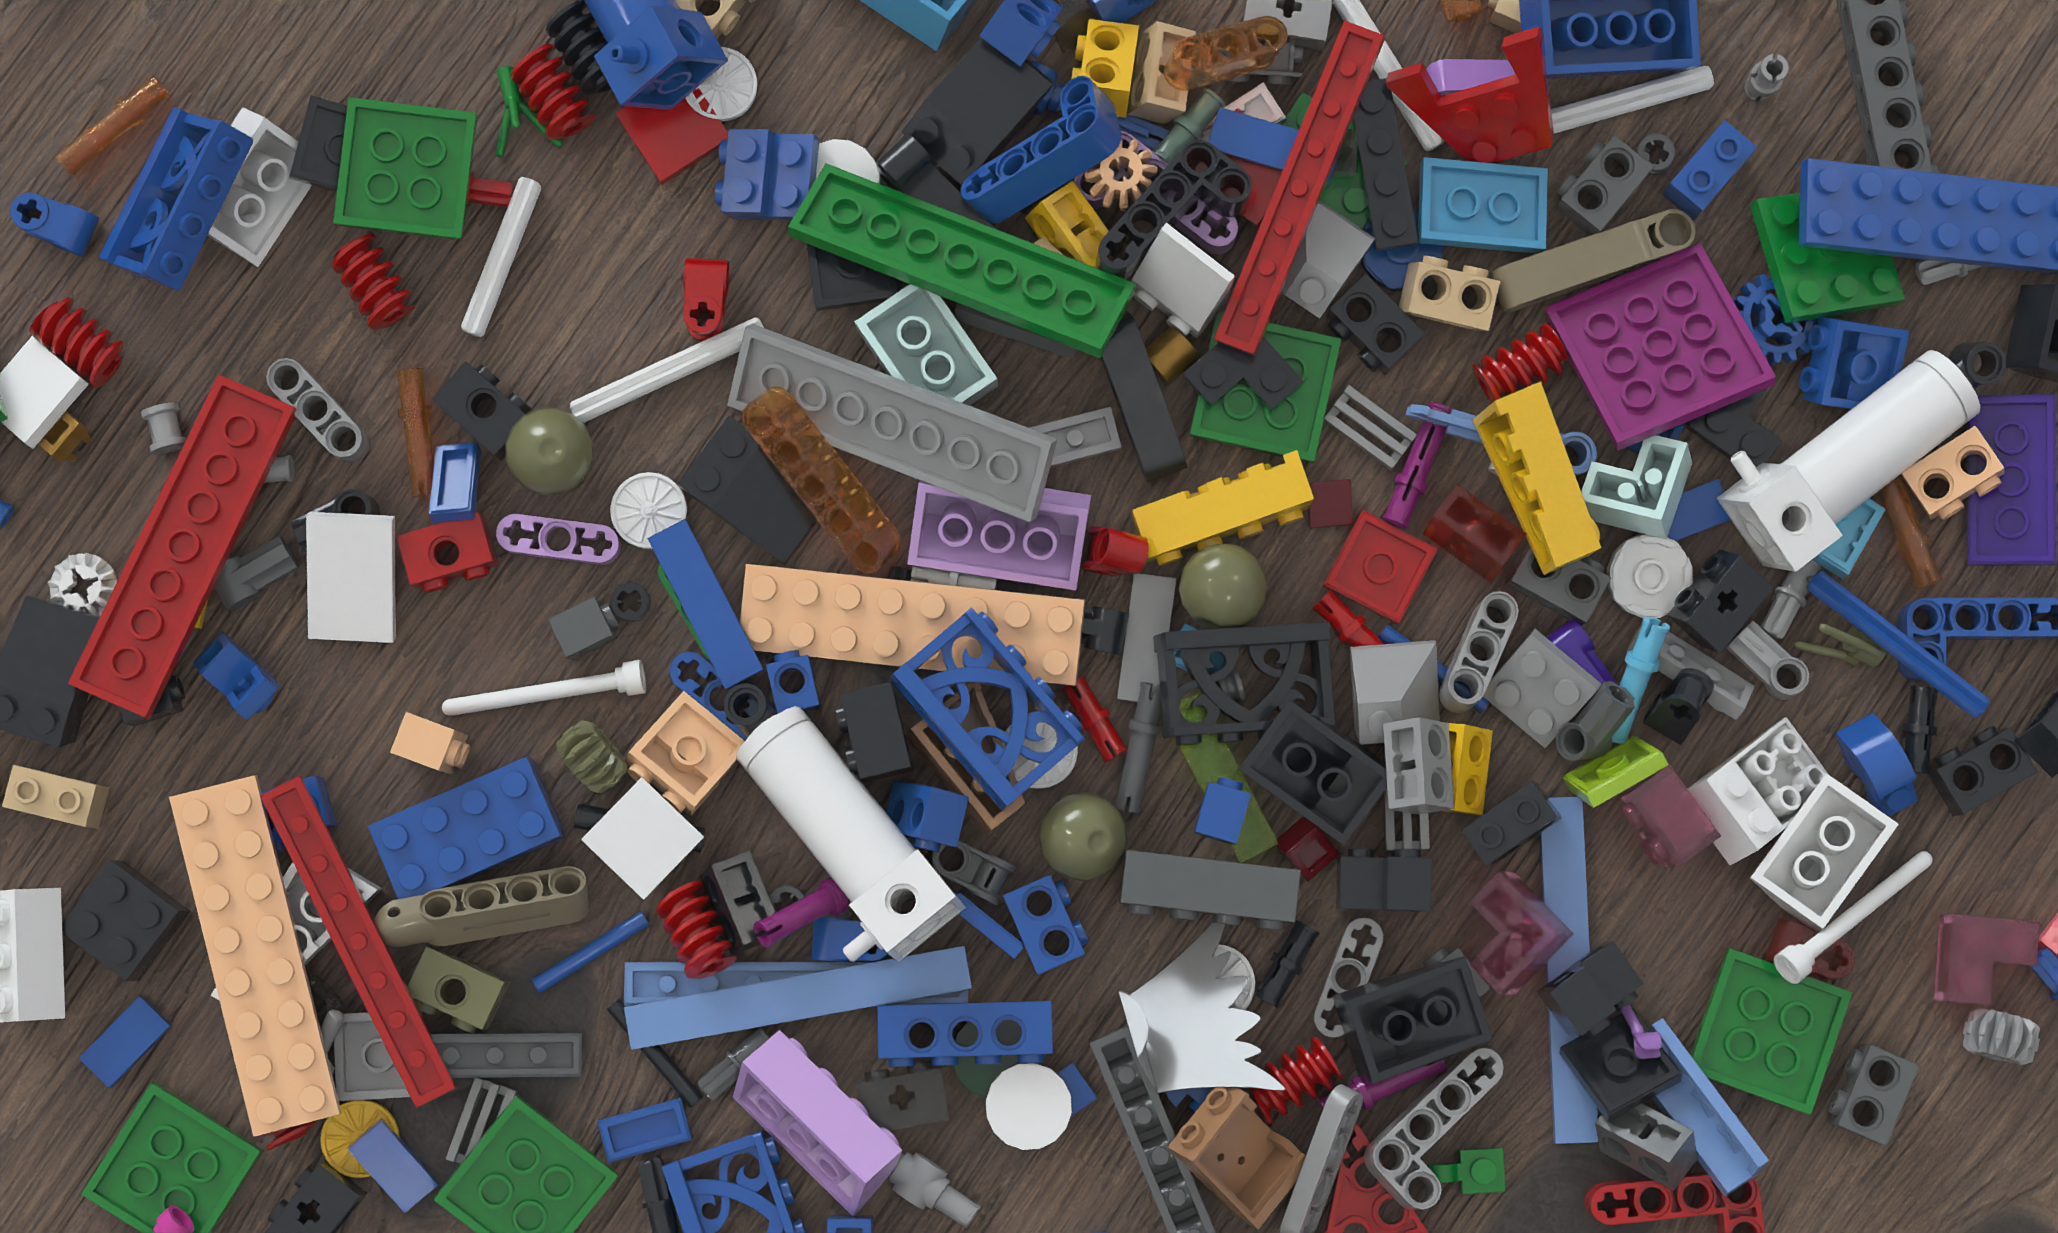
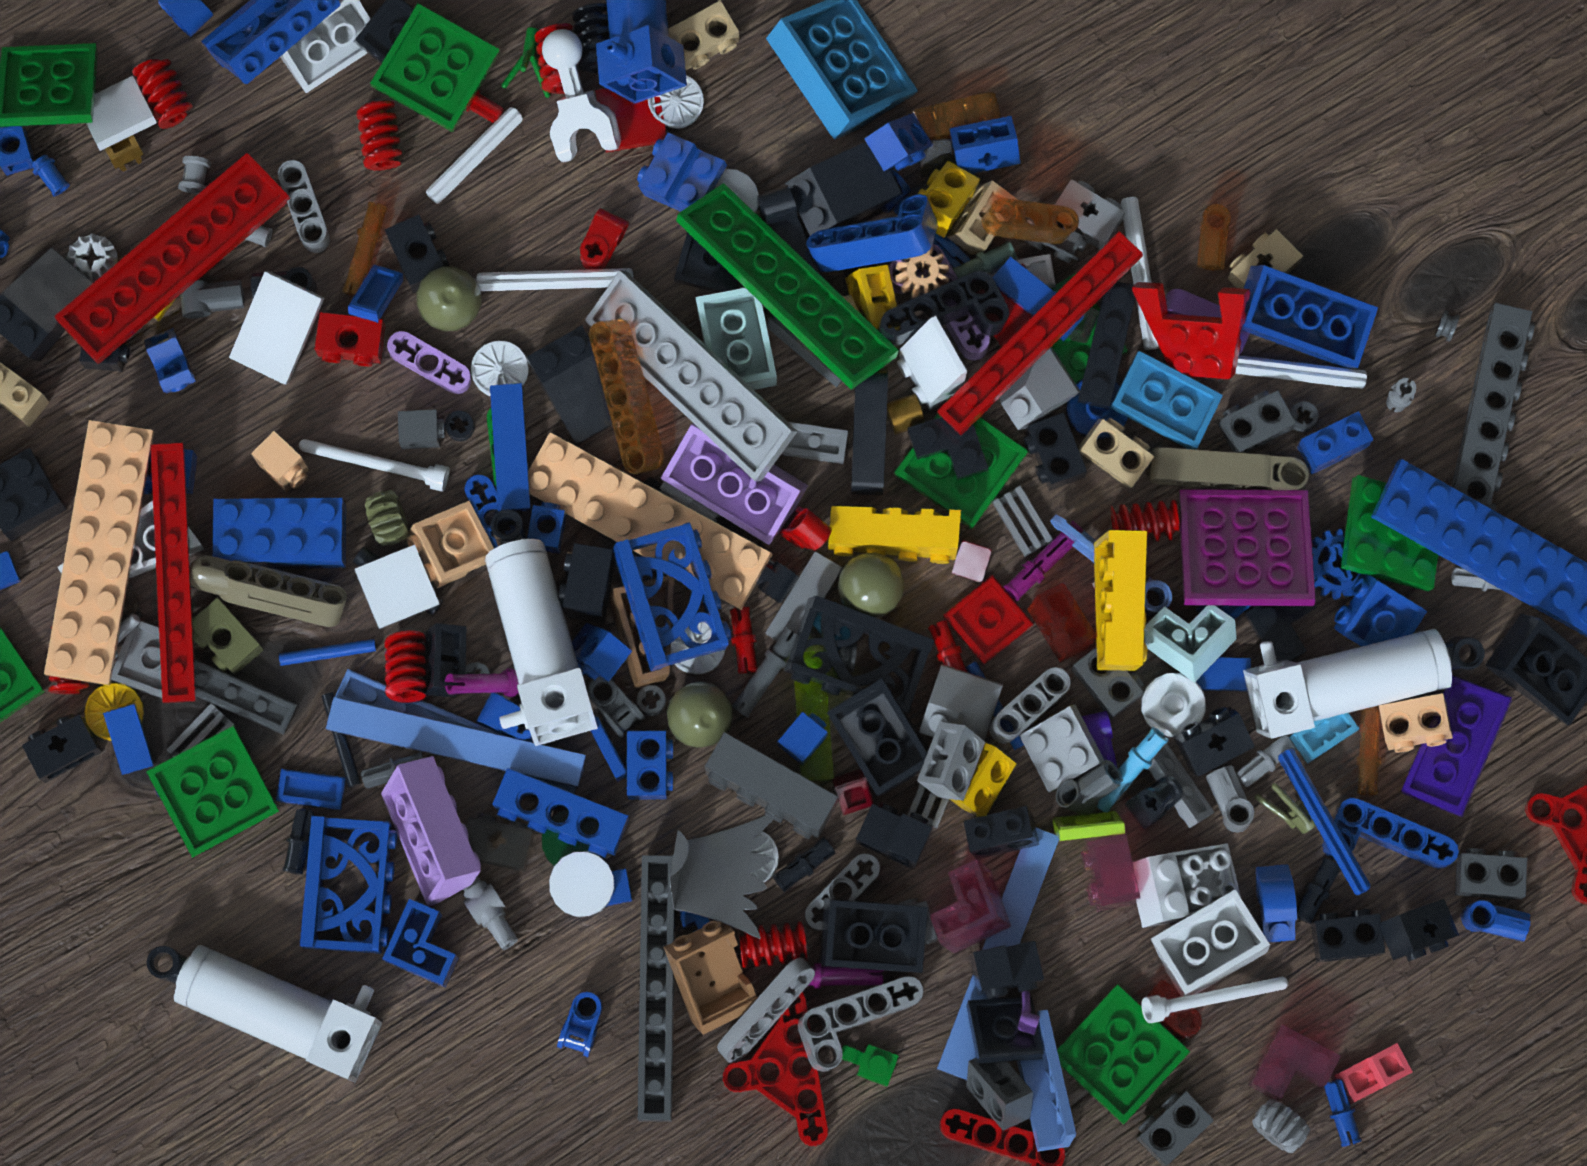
camera: 20 degrees right, 5 degrees down
(605, 145) = (578, 108): none -> white piece
(1026, 841) = (642, 697): none -> dark grey bush

